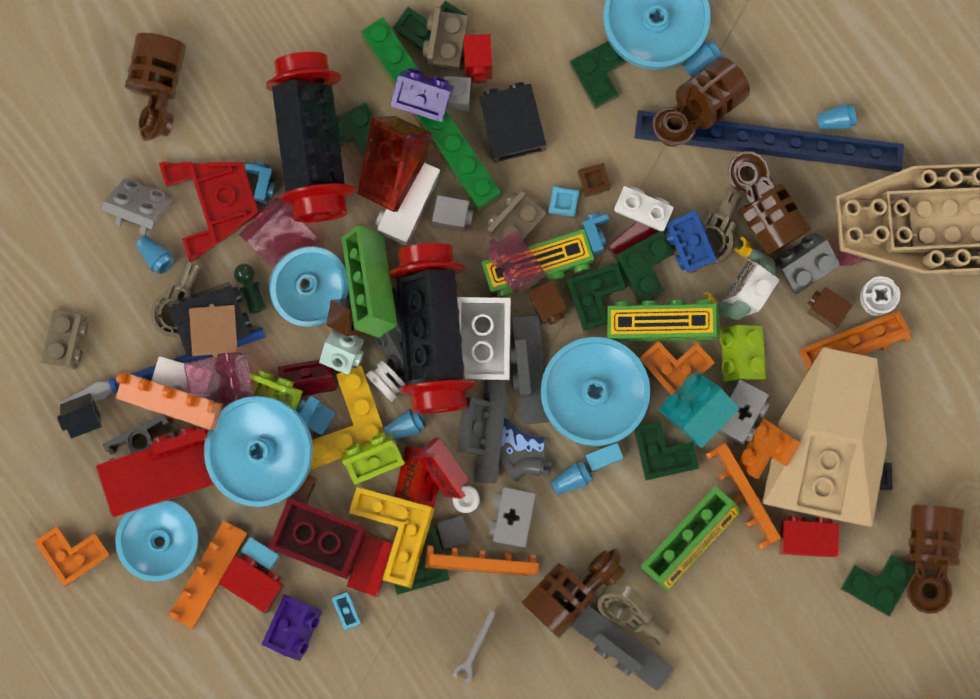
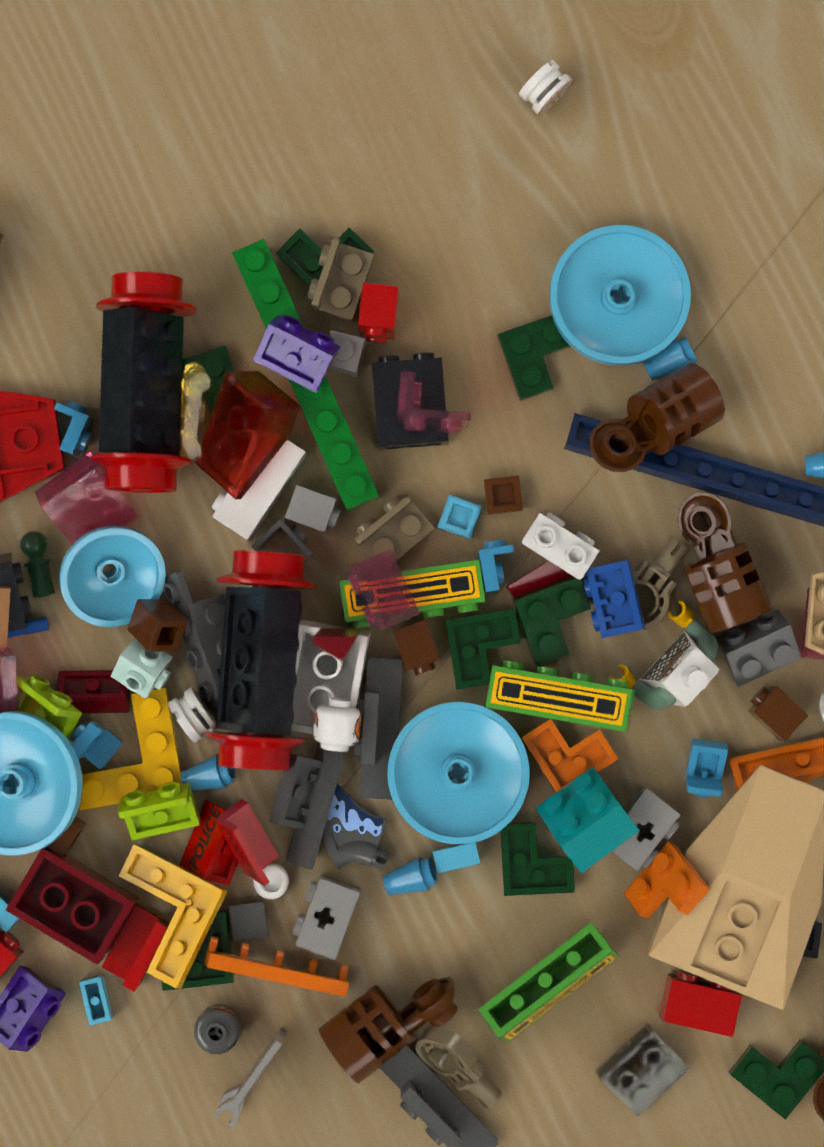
camera: 10 degrees right, 5 degrees up
(350, 152) = (194, 383): none -> clear yellow plate
(369, 281) = (189, 585): bright green brick -> none
(441, 233) = (294, 533): none -> dark grey bracket
(452, 622) = (223, 1018): none -> dark grey head
(489, 301) = (336, 640): none -> dark red slope
(497, 367) = (337, 725): none -> white head
(520, 128) = (418, 418): none -> clear pink bracket
(743, 353) = (656, 752): lime bracket -> none
(746, 494) = (628, 933): orange hinge -> none
(773, 594) = (642, 1069): none -> clear smoke brick
(782, 358) = (705, 768): none -> dark azure bracket

